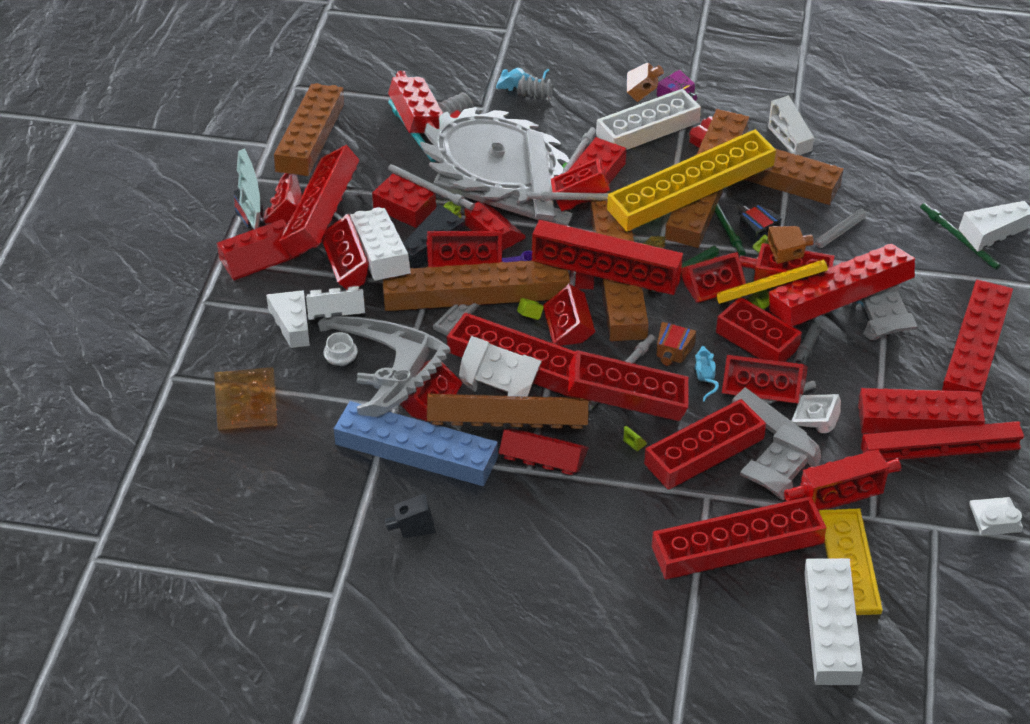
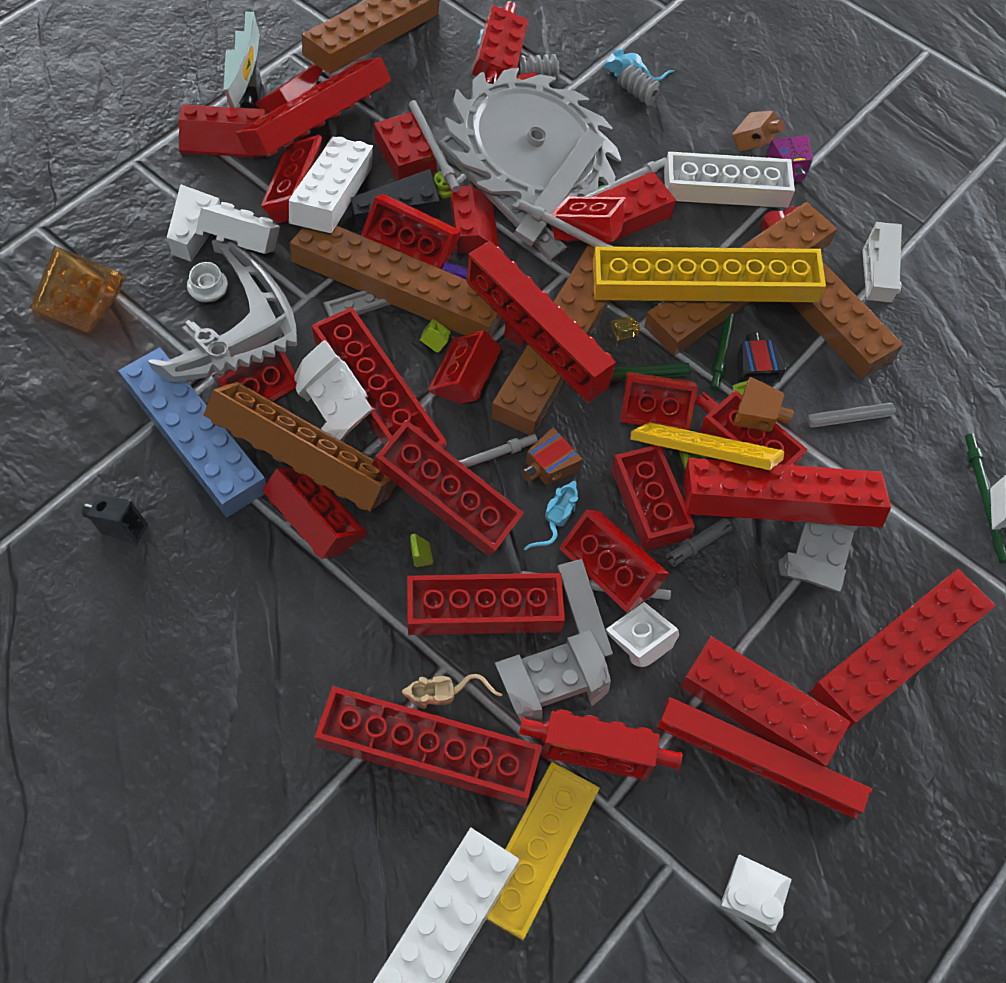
camera: 25 degrees right, 15 degrees up
(718, 505) = (439, 690): none -> tan animal

